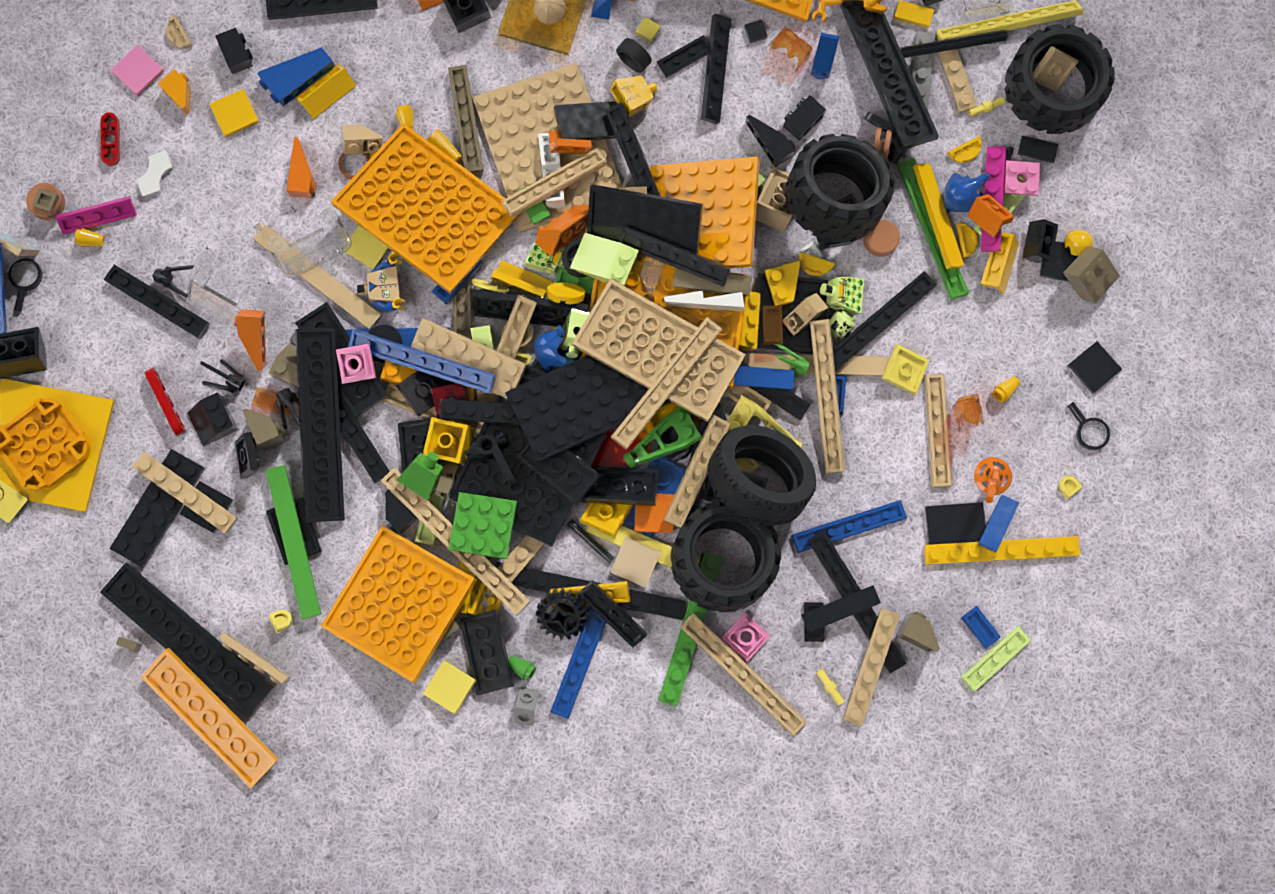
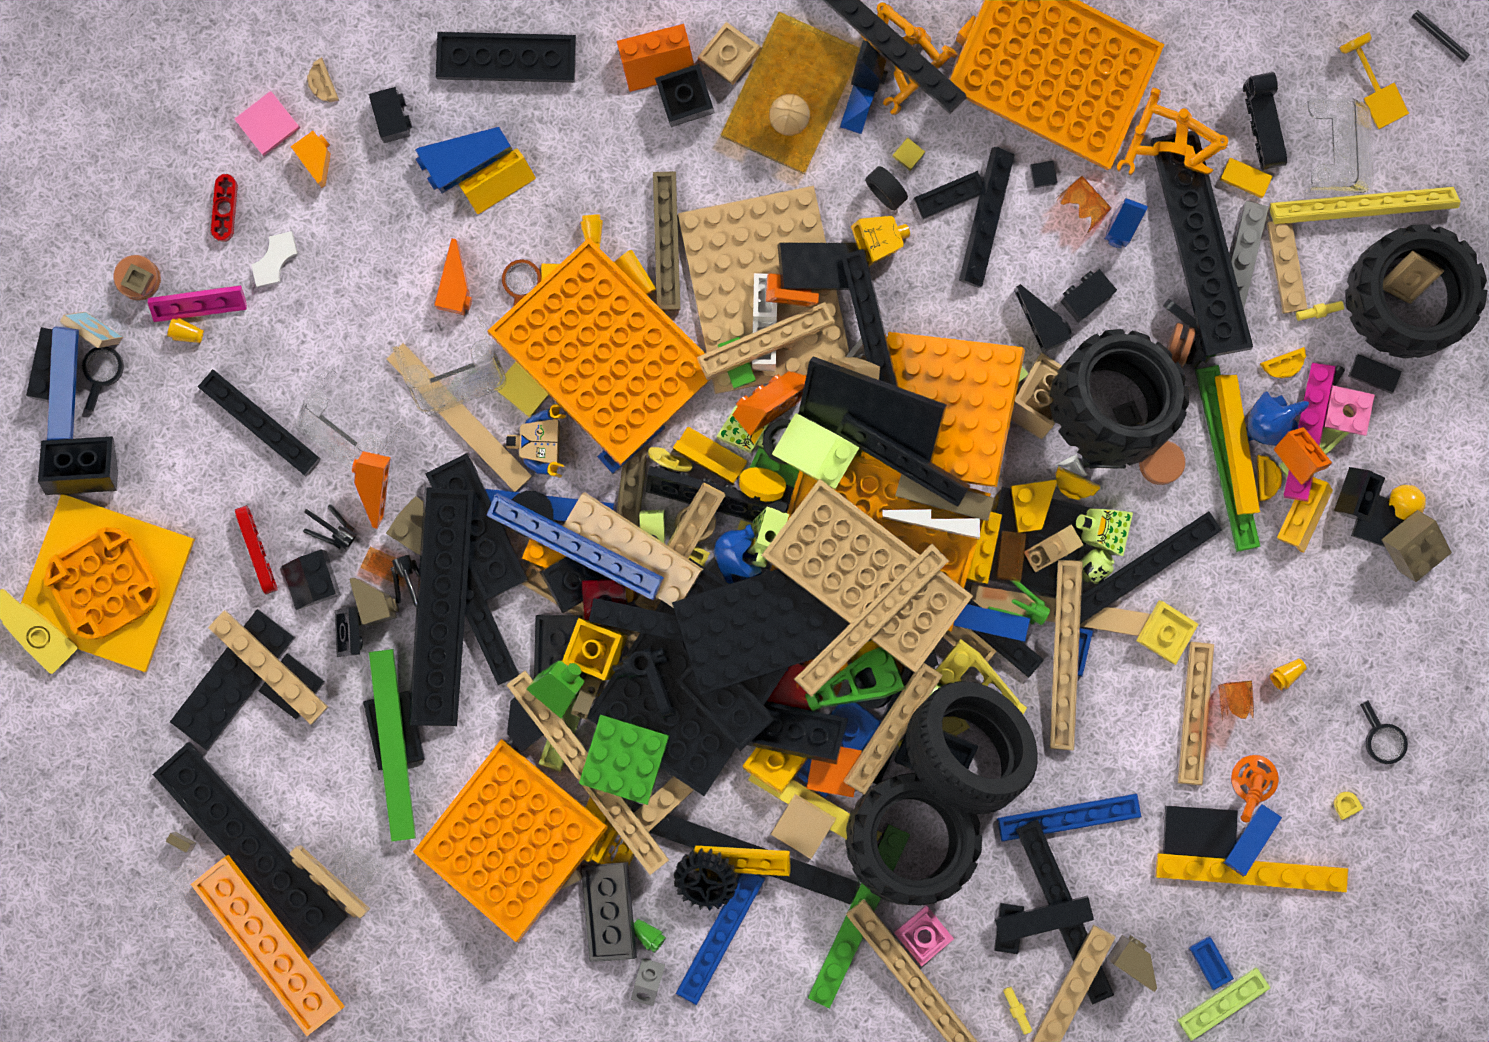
camera: 10 degrees right, 5 degrees up
(165, 277) = (273, 394): black plant -> none
(234, 113) = (380, 194): yellow tile -> none
(280, 620) = (365, 837): light yellow tile -> none
(360, 140) = (532, 251): tan slope -> none
(364, 357) = (504, 530): bright pink piece -> none
(449, 687) = (559, 947): light yellow tile -> none
(590, 541) = (751, 791): black bar -> none
(612, 613) = (766, 887): black tile -> none
(651, 274) = (870, 476): clear tile -> none
(954, 43) = (1291, 225): black axle -> none
(1094, 367) = (1402, 660): black tile -> none

